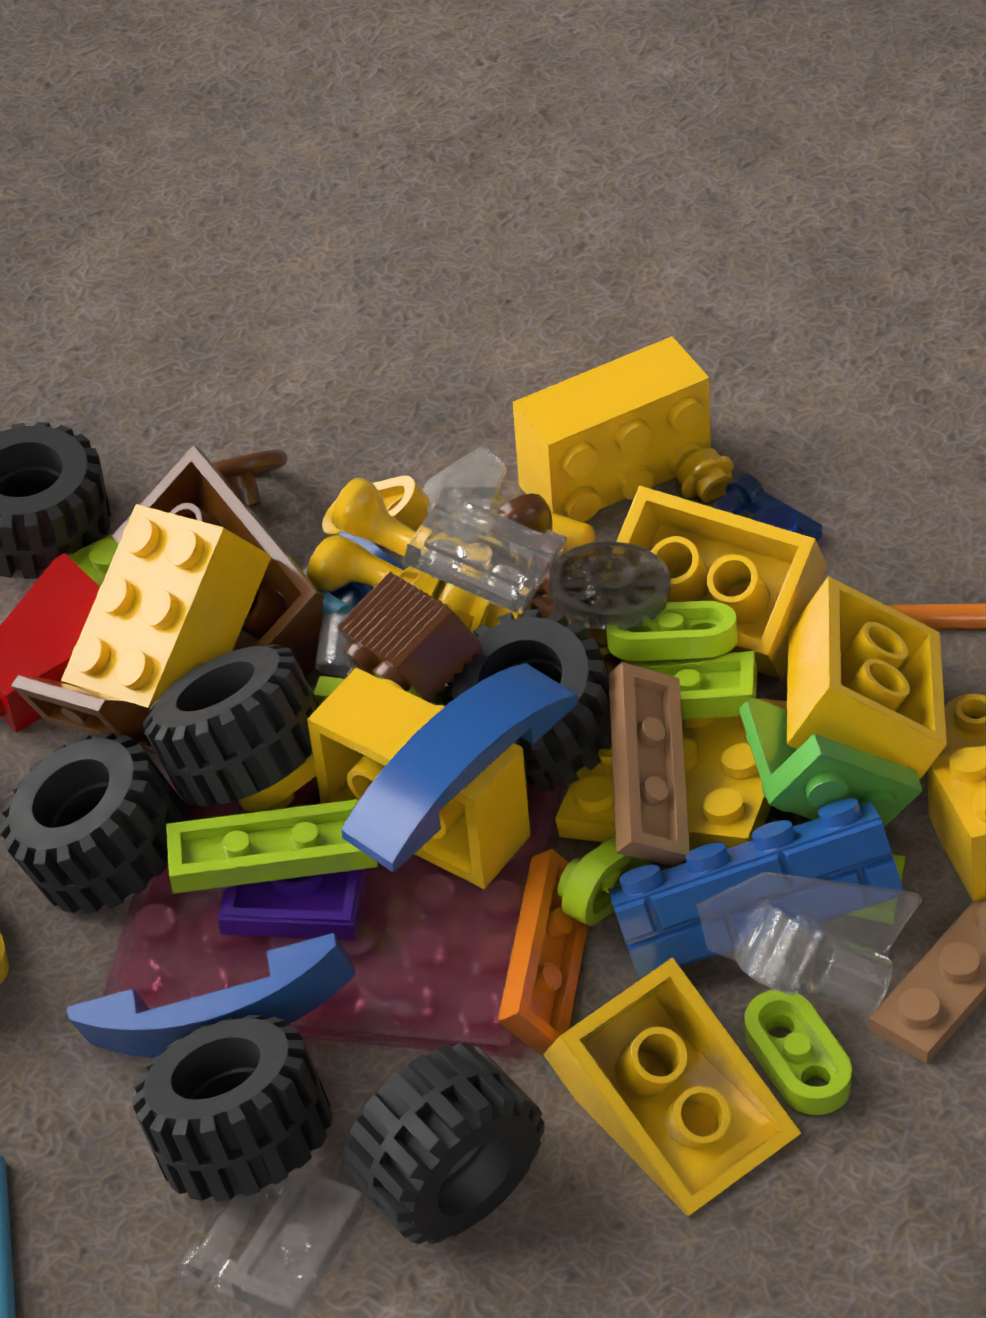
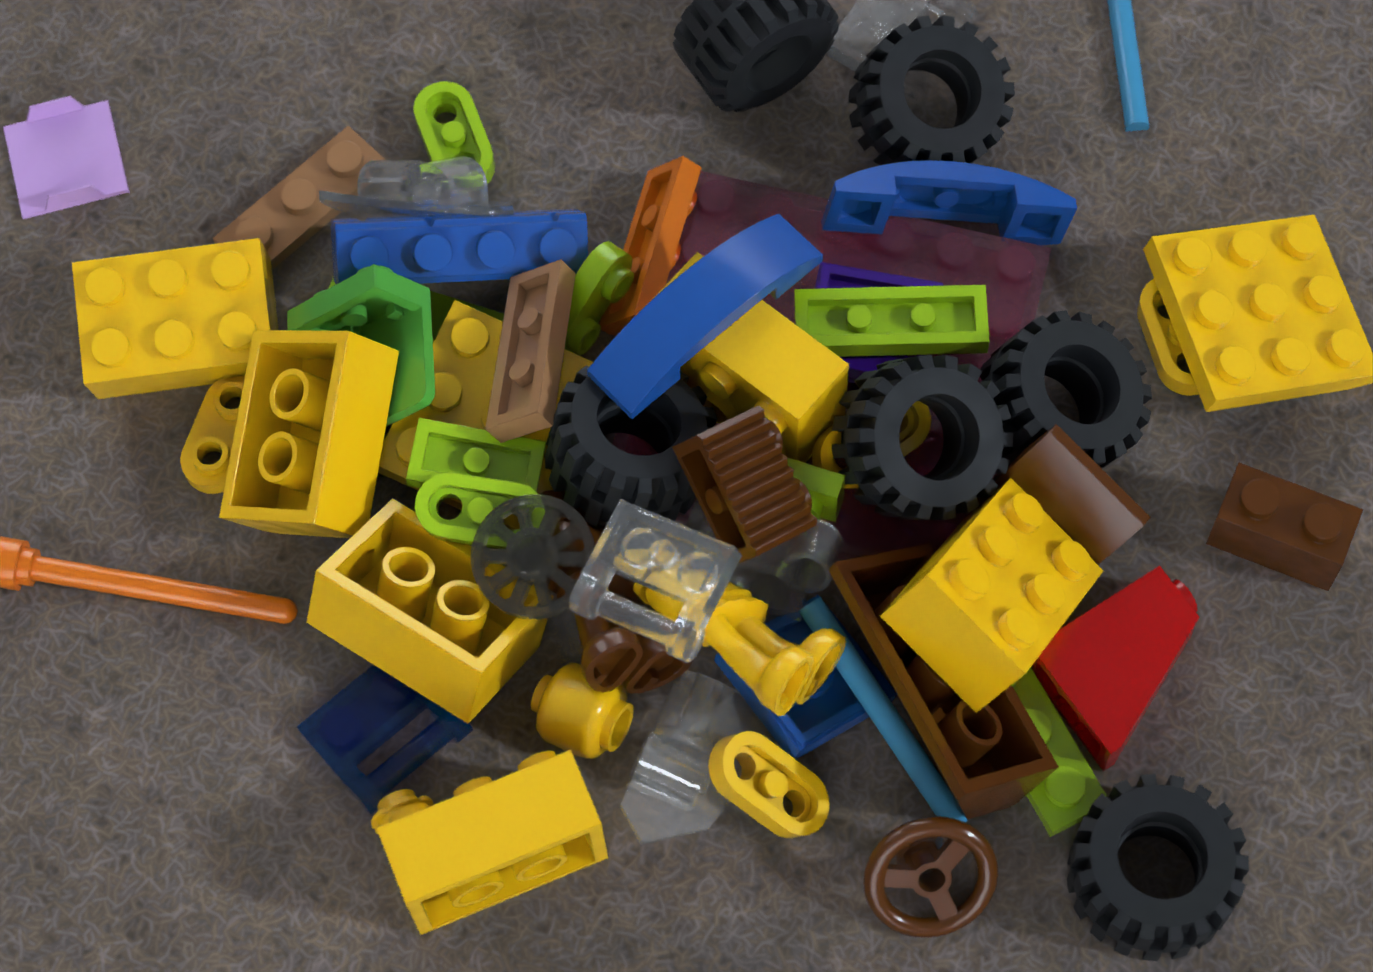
camera: 175 degrees left, 20 degrees up
(672, 1088) = (570, 114): yellow slope -> none

